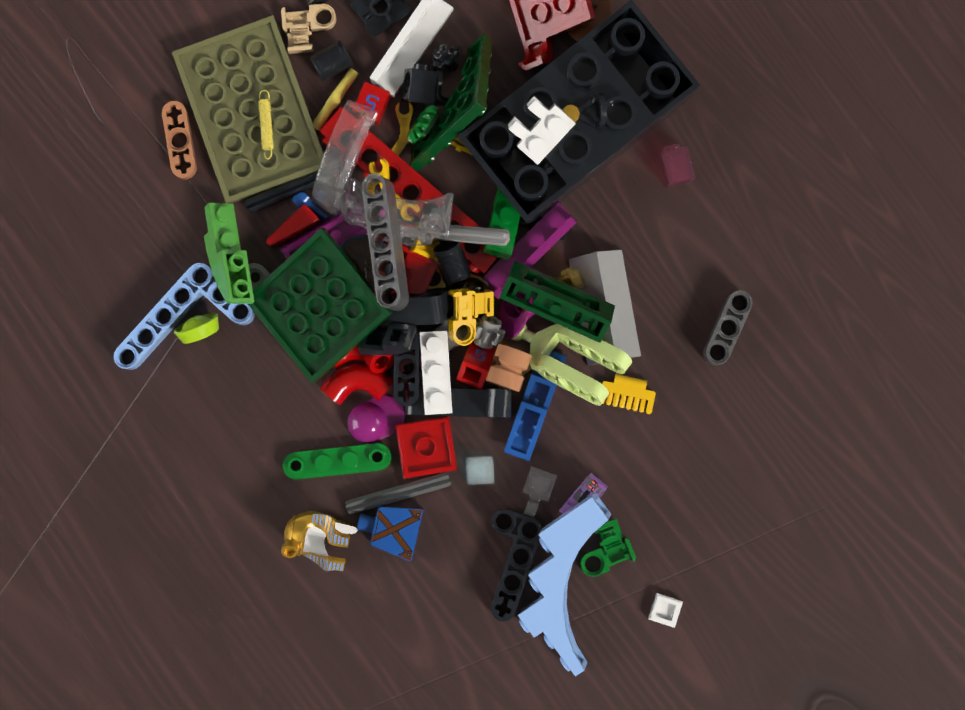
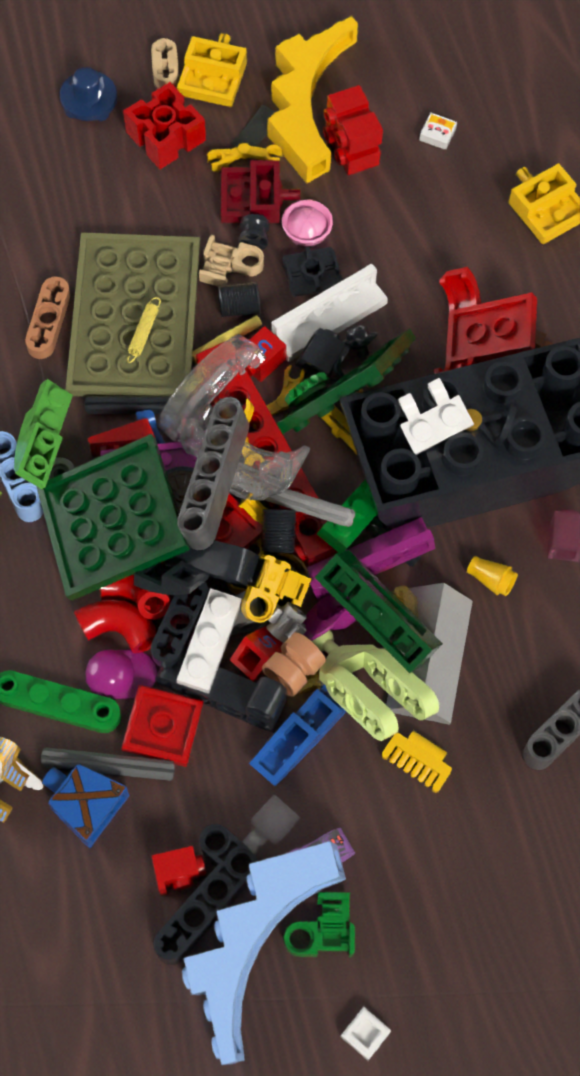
camera: 15 degrees right, 20 degrees down
(479, 470) = (212, 775): clear light blue slope -> none
(485, 551) = (178, 869): none -> red brick
(630, 223) = (495, 576): none -> yellow cone

